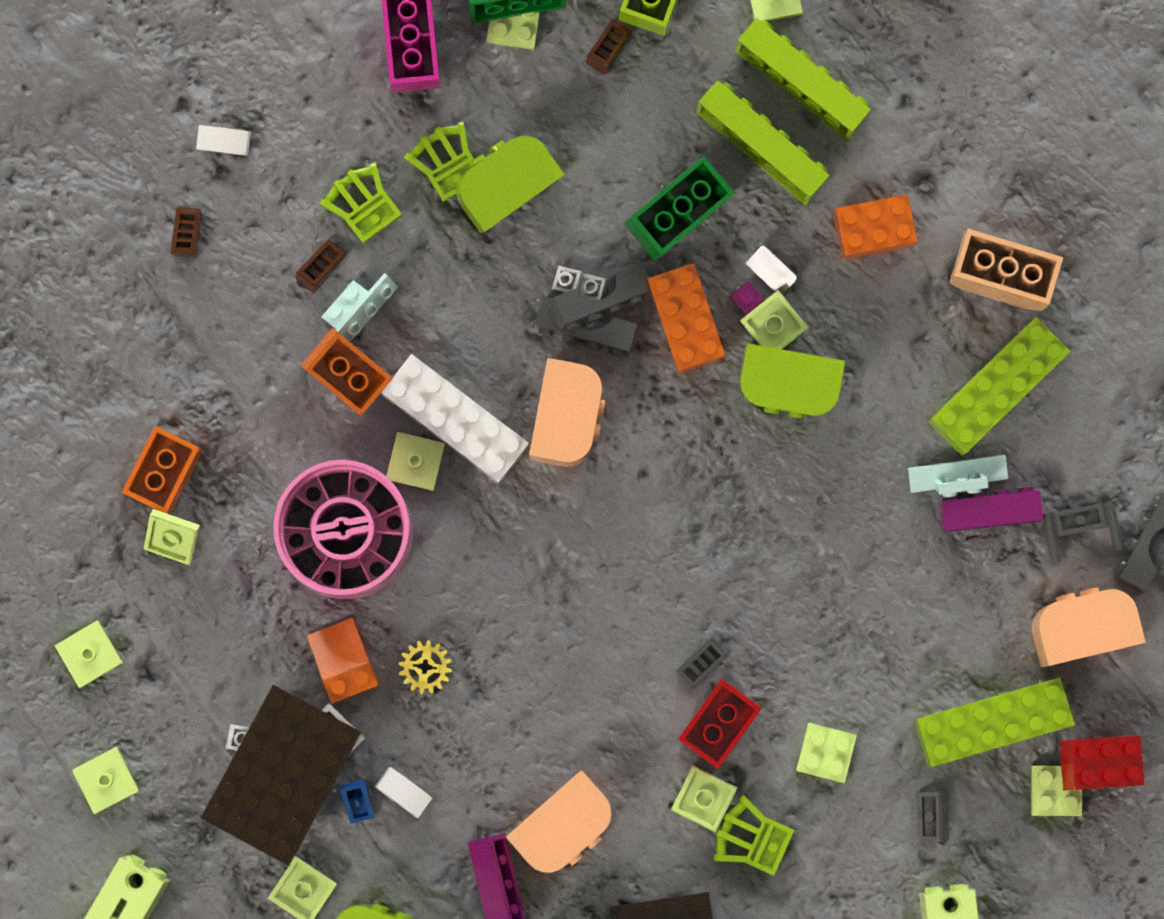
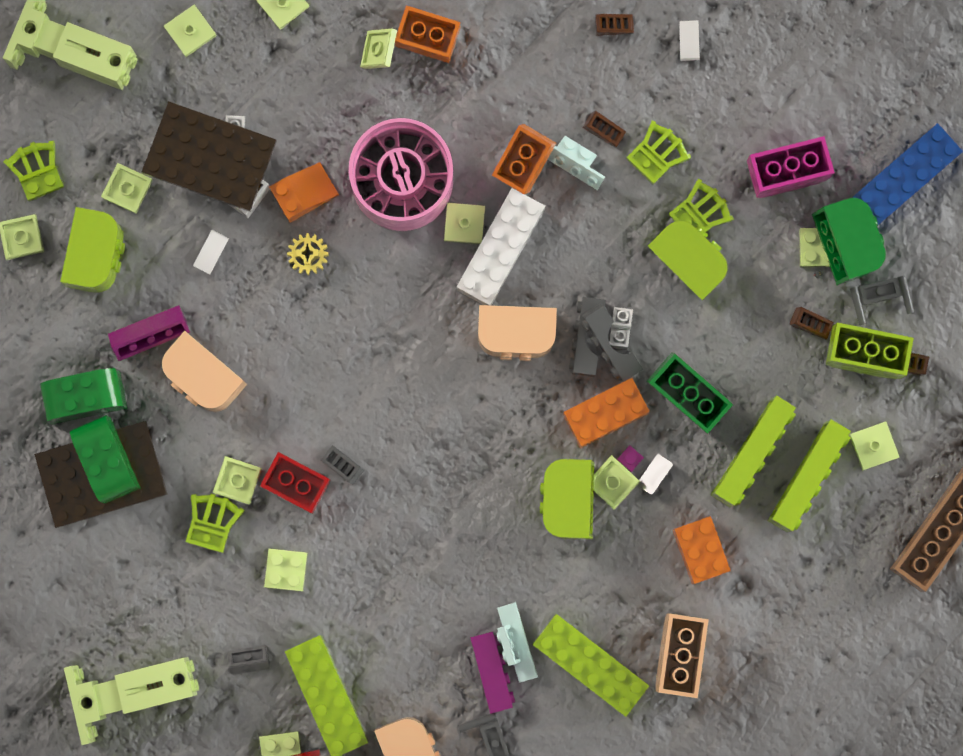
camera: 80 degrees right, 0 degrees up
(357, 801) = (200, 218): blue slope -> none

